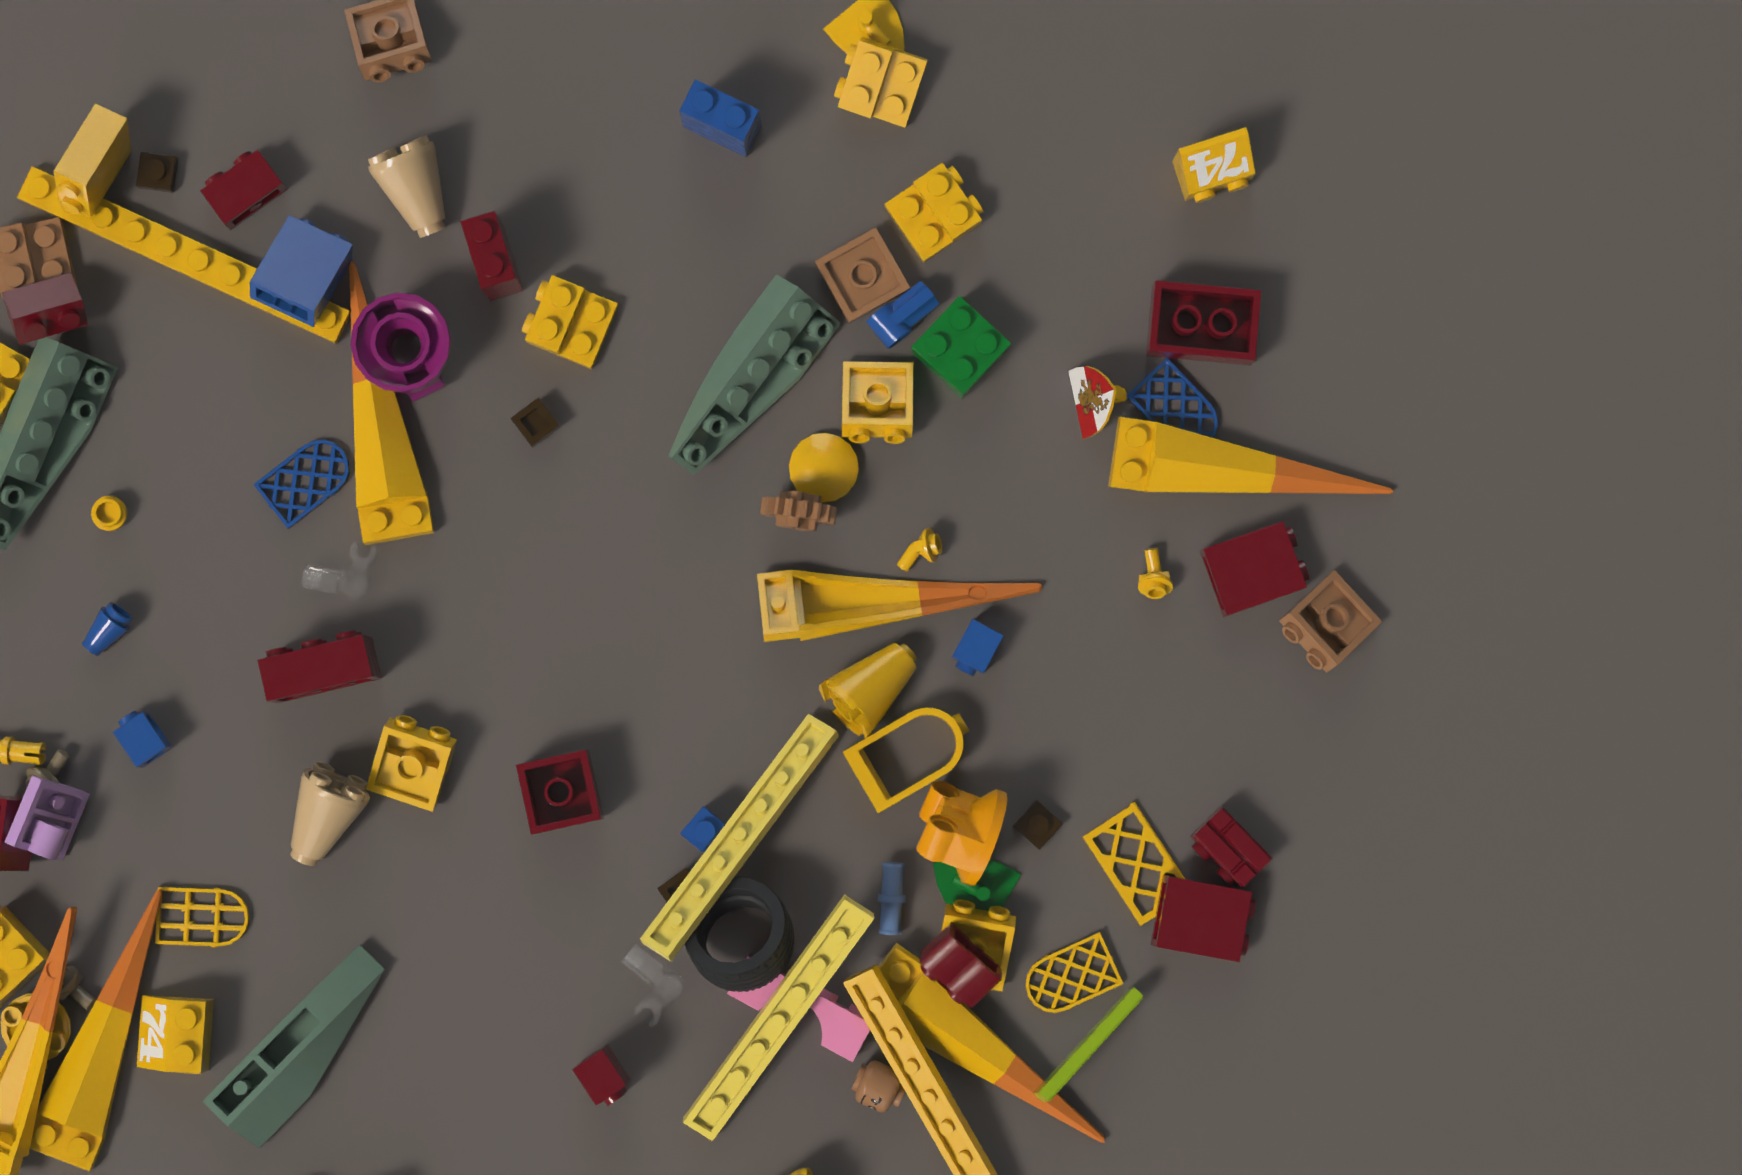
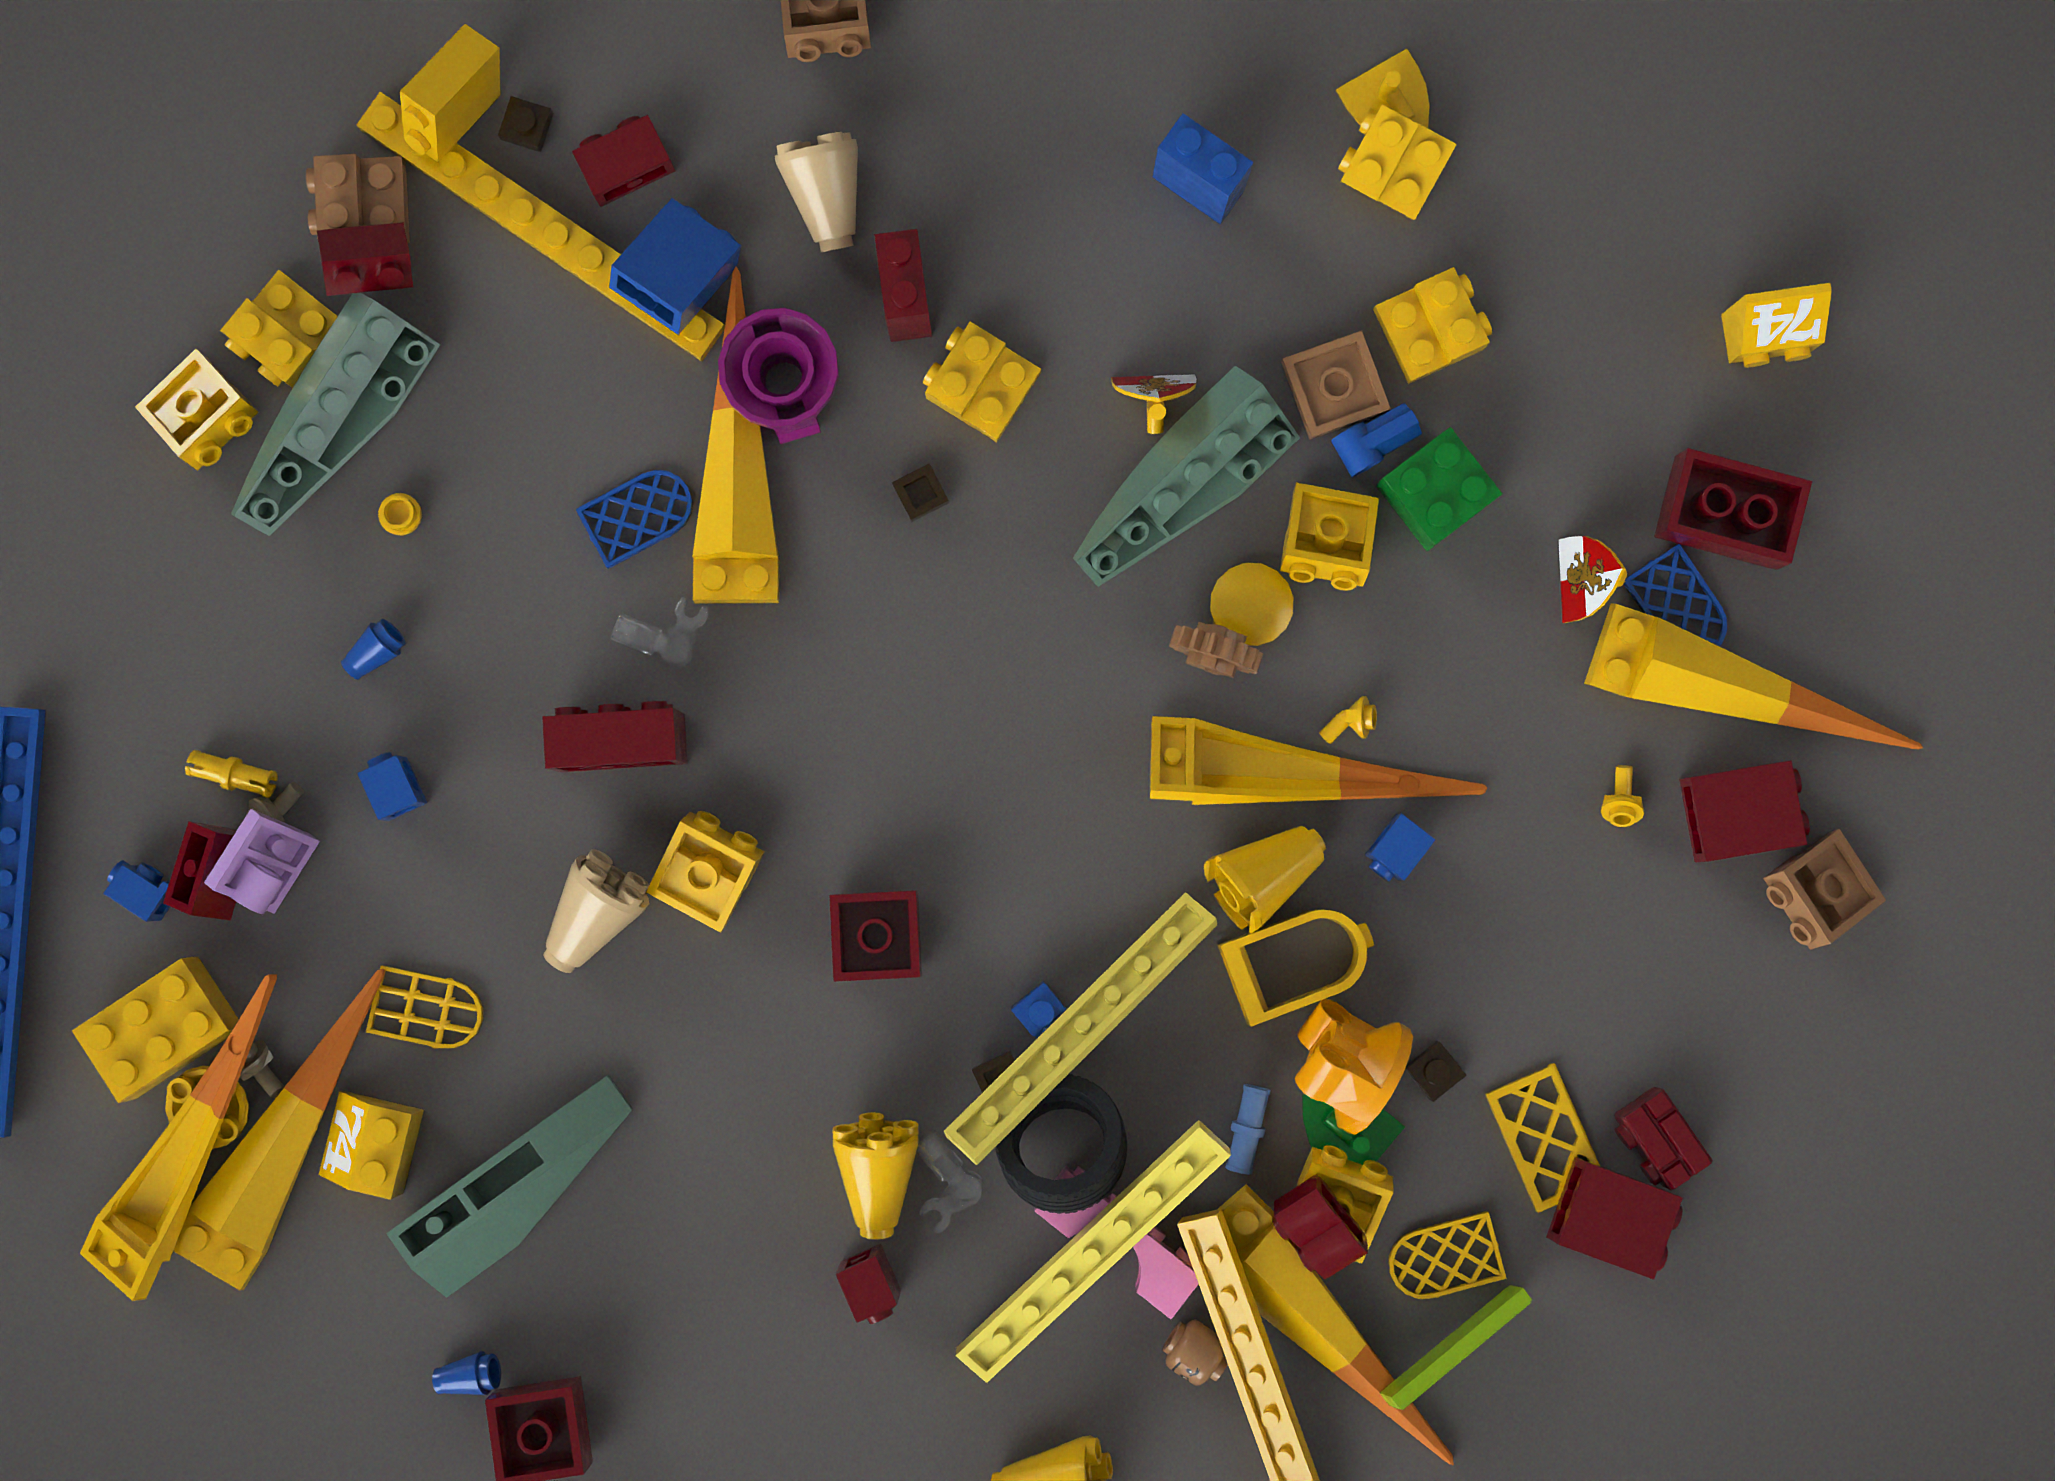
camera: 10 degrees right, 0 degrees up
(592, 983) = (876, 1169): none -> yellow cone
(714, 306) = (1156, 391): none -> shield

